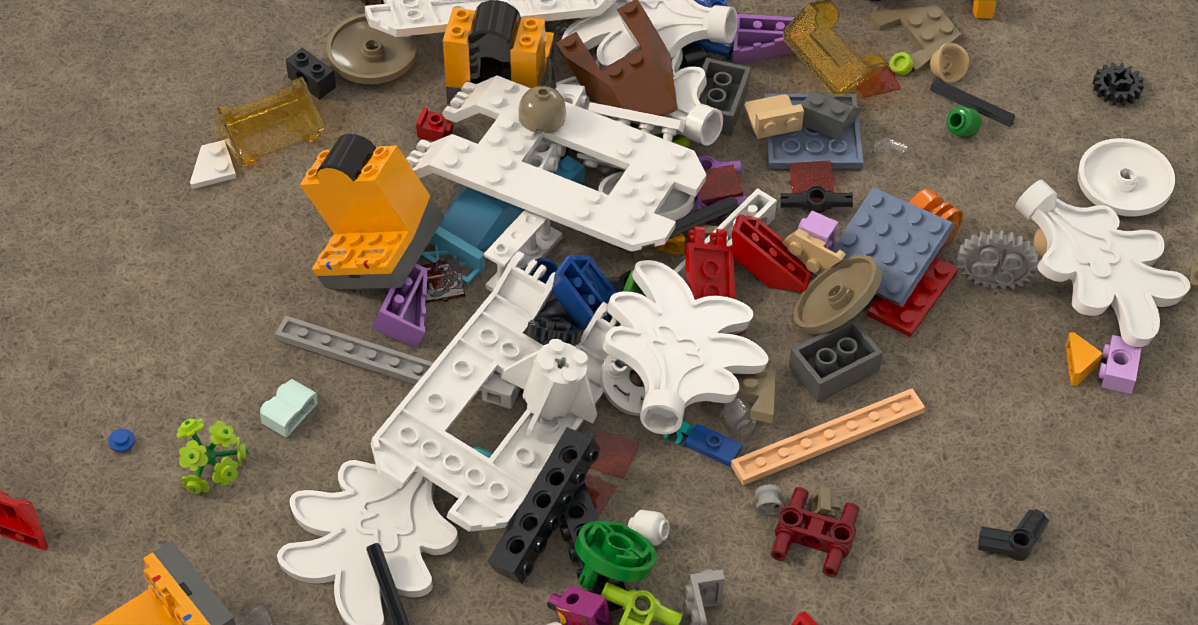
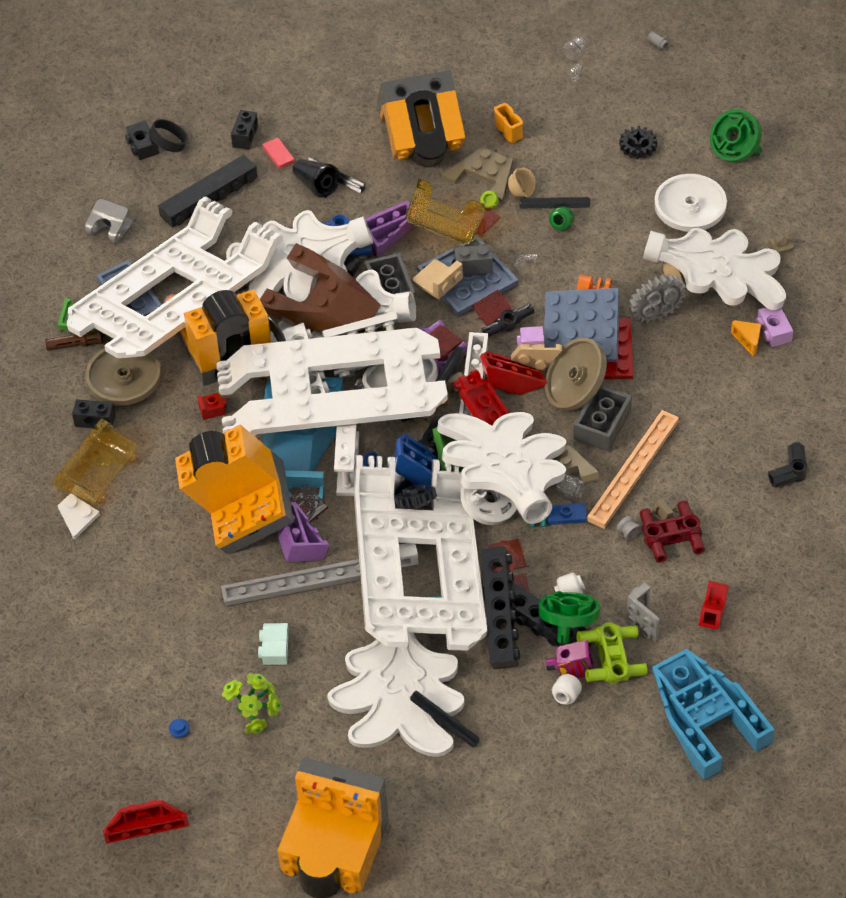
camera: 30 degrees left, 0 degrees up
(542, 109) = (299, 352): dark tan cylinder -> none
(554, 383) = (448, 527): white brick -> none

